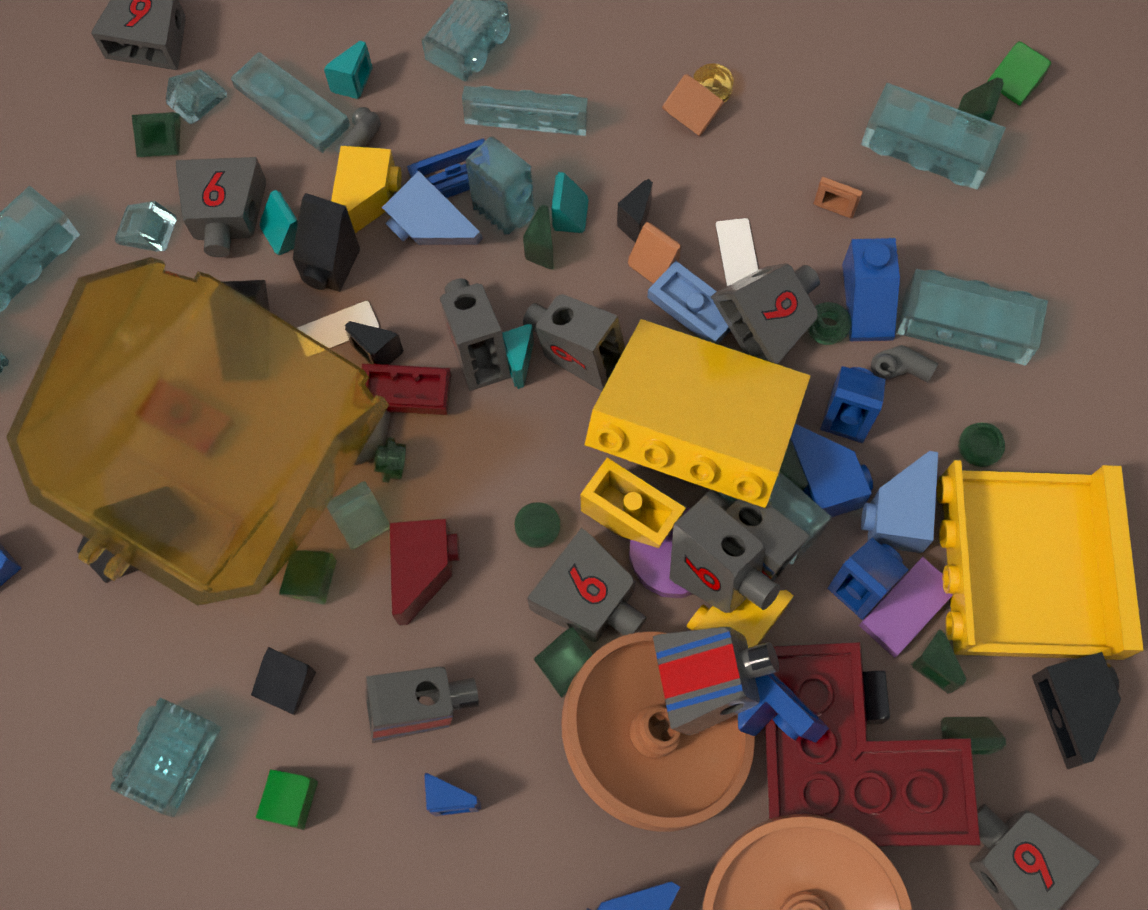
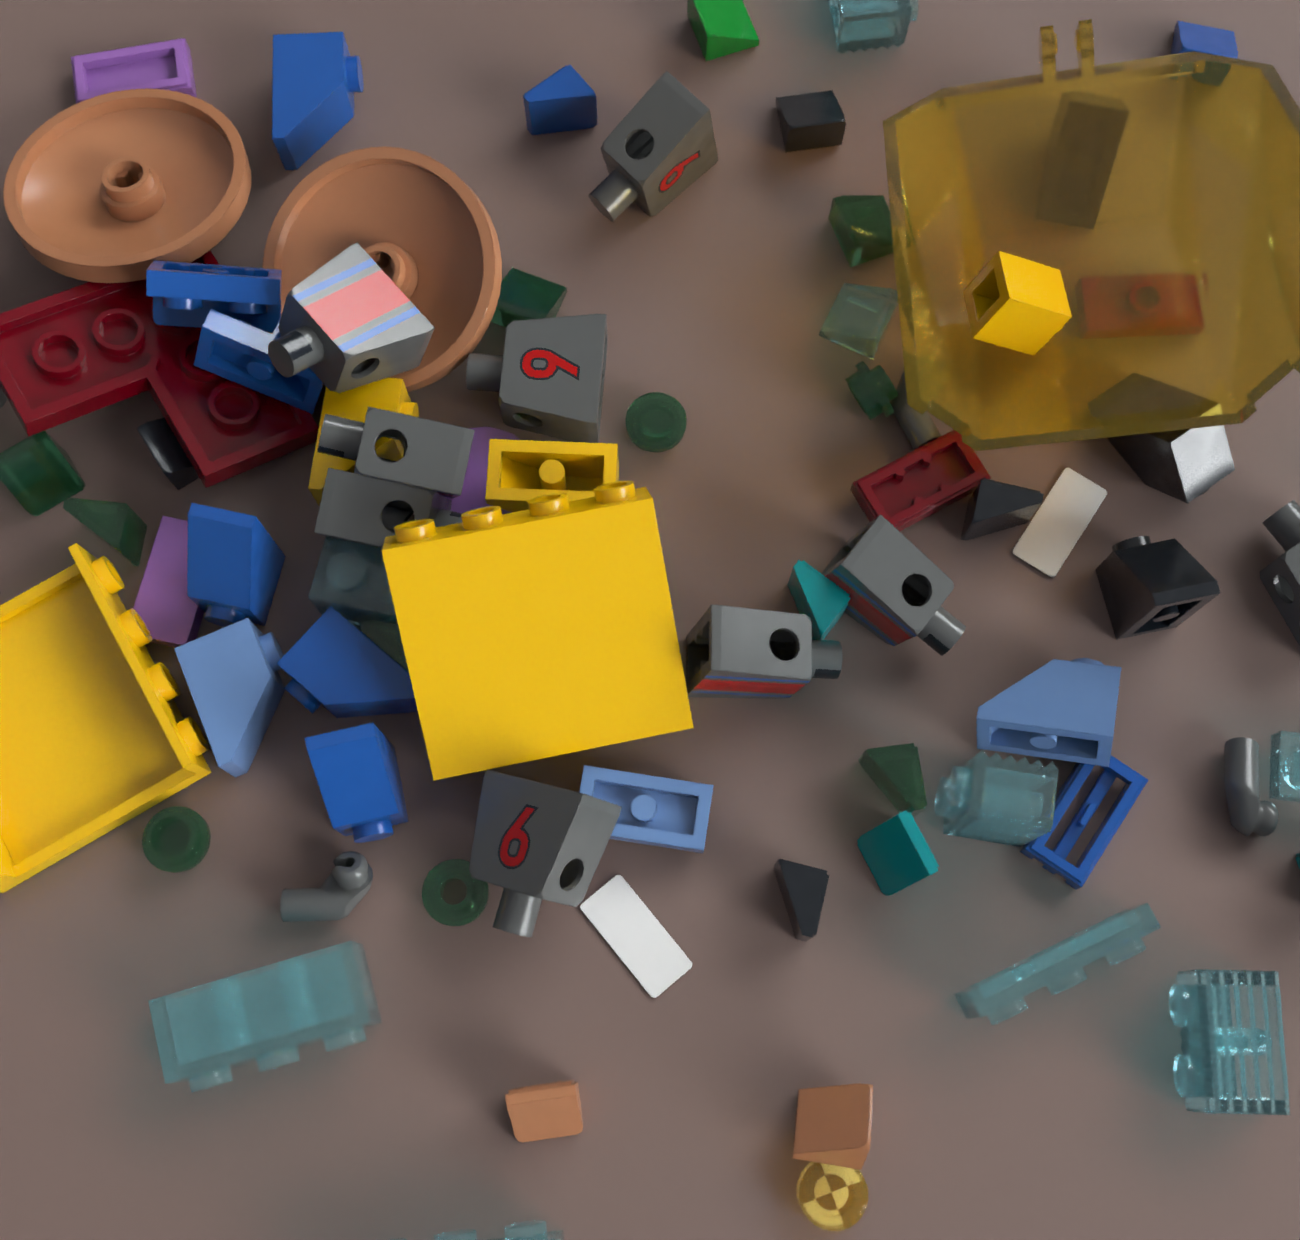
camera: 145 degrees right, 5 degrees up
(268, 437) = (1016, 303): none -> yellow brick
(279, 223) = (1238, 604): teal slope -> none
(365, 182) = (1176, 702): yellow slope -> none
(419, 564) = (757, 300): dark red slope -> none
(653, 252) = (738, 849): nougat slope -> none
(786, 766) = (188, 291): none -> blue bracket
(872, 288) = (421, 972): blue slope -> none

